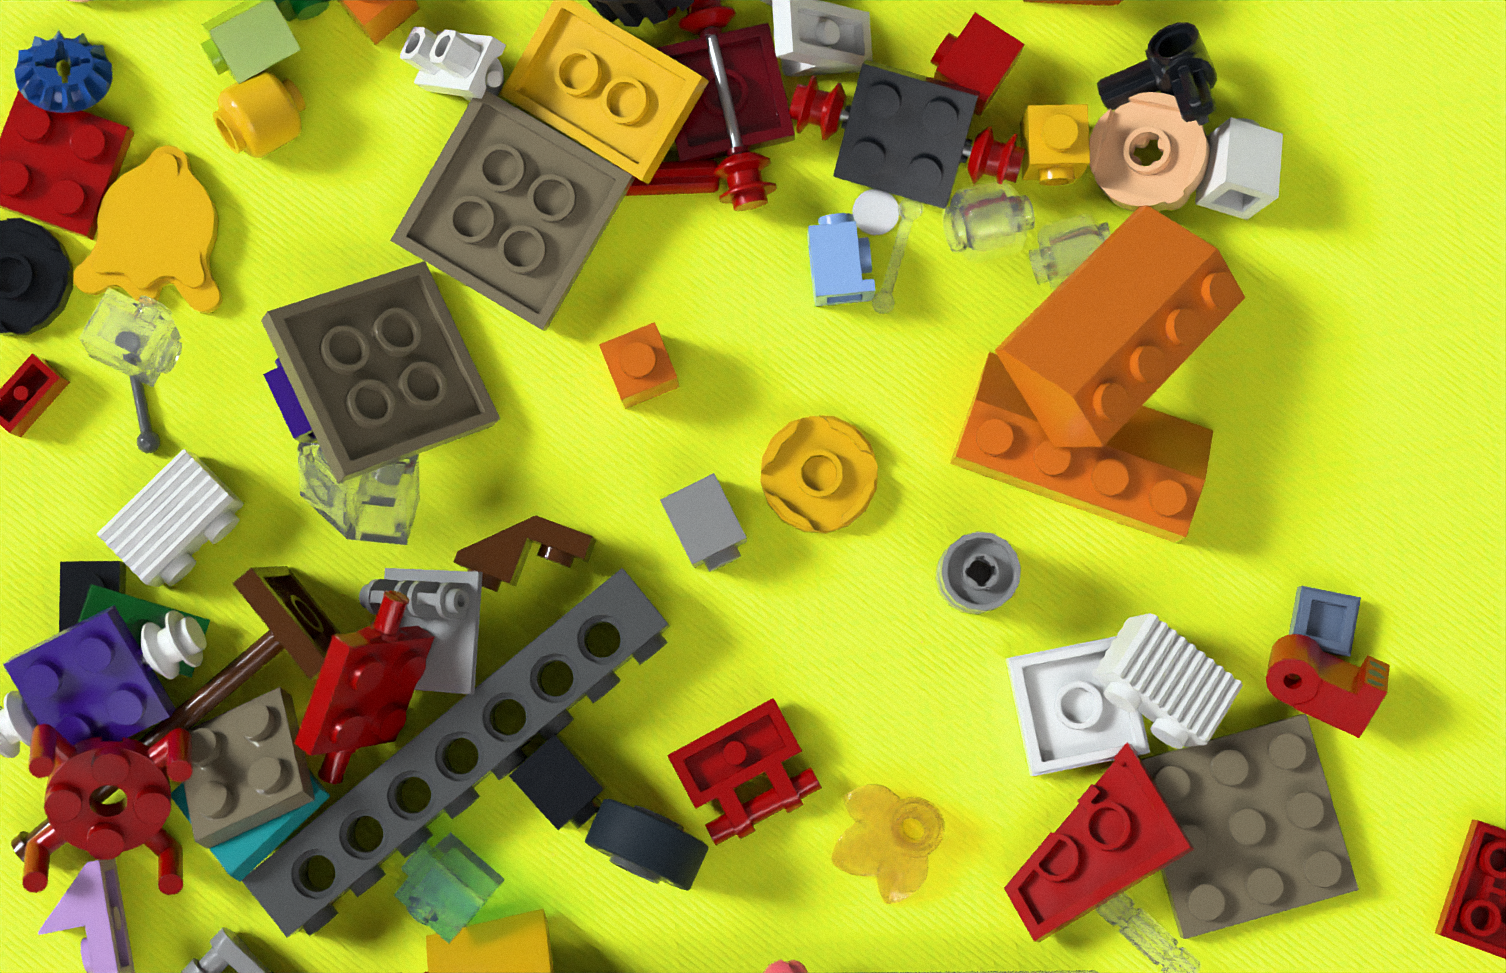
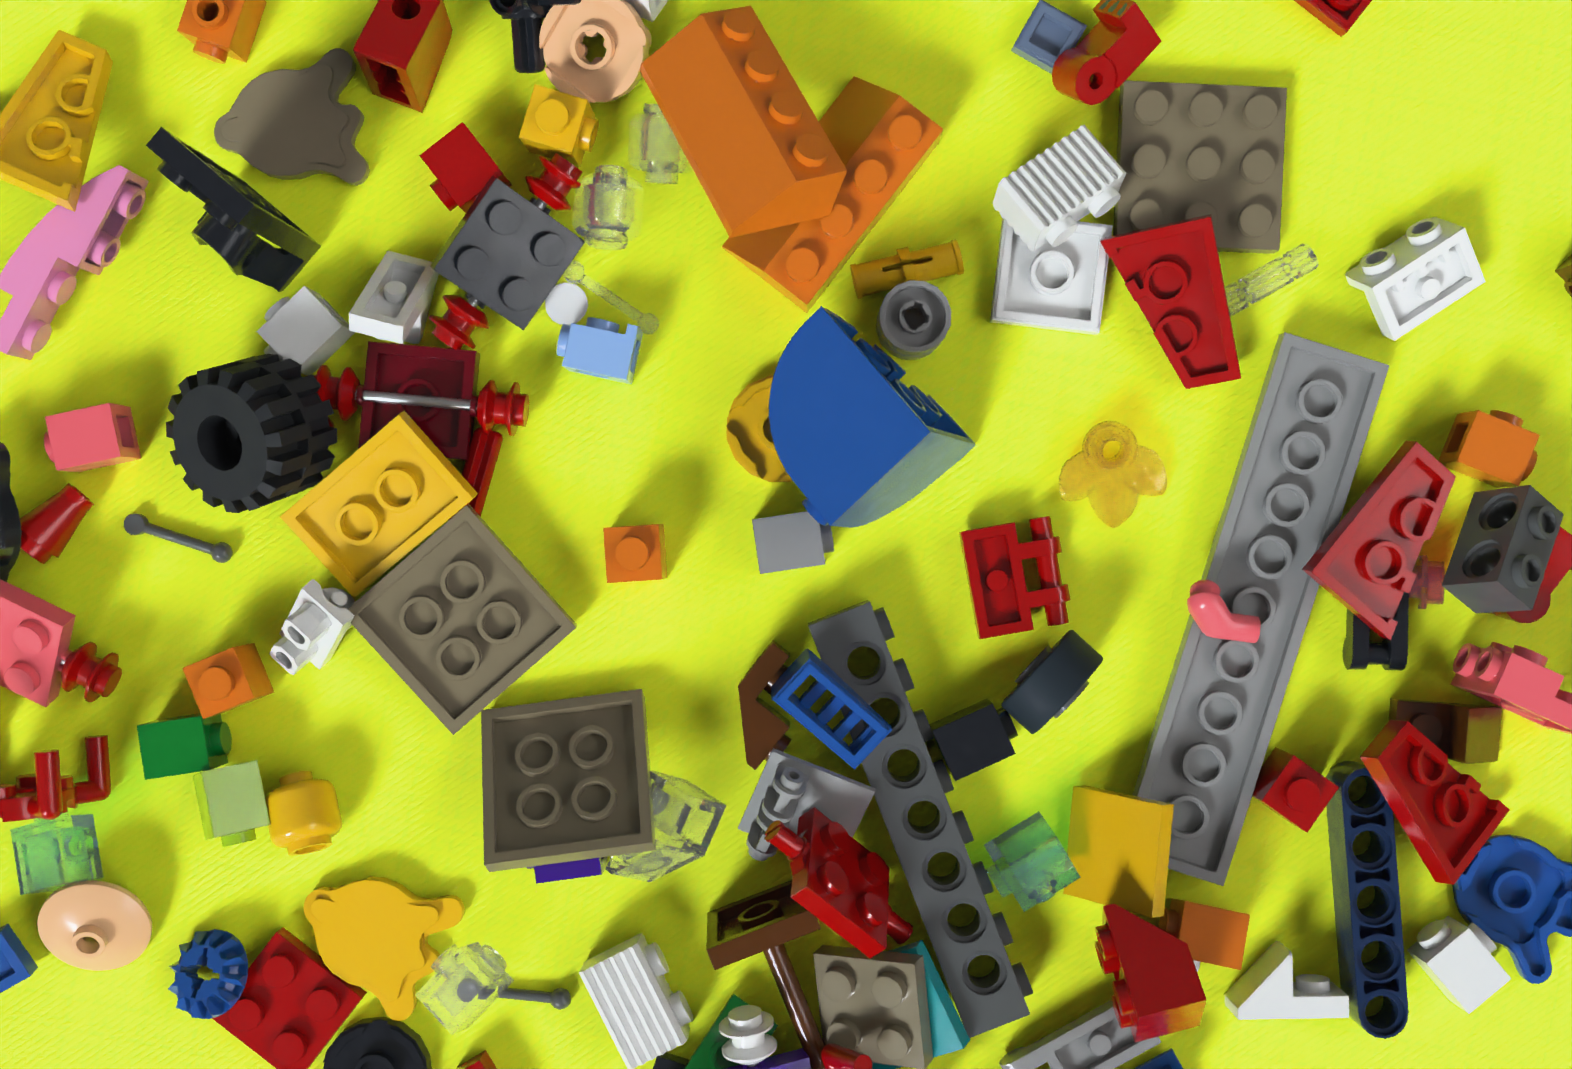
camera: 70 degrees left, 5 degrees up
(522, 609) = (799, 708): none -> blue slope
(842, 548) = (852, 428): none -> blue brick
(1032, 550) = (916, 265): none -> yellow pin

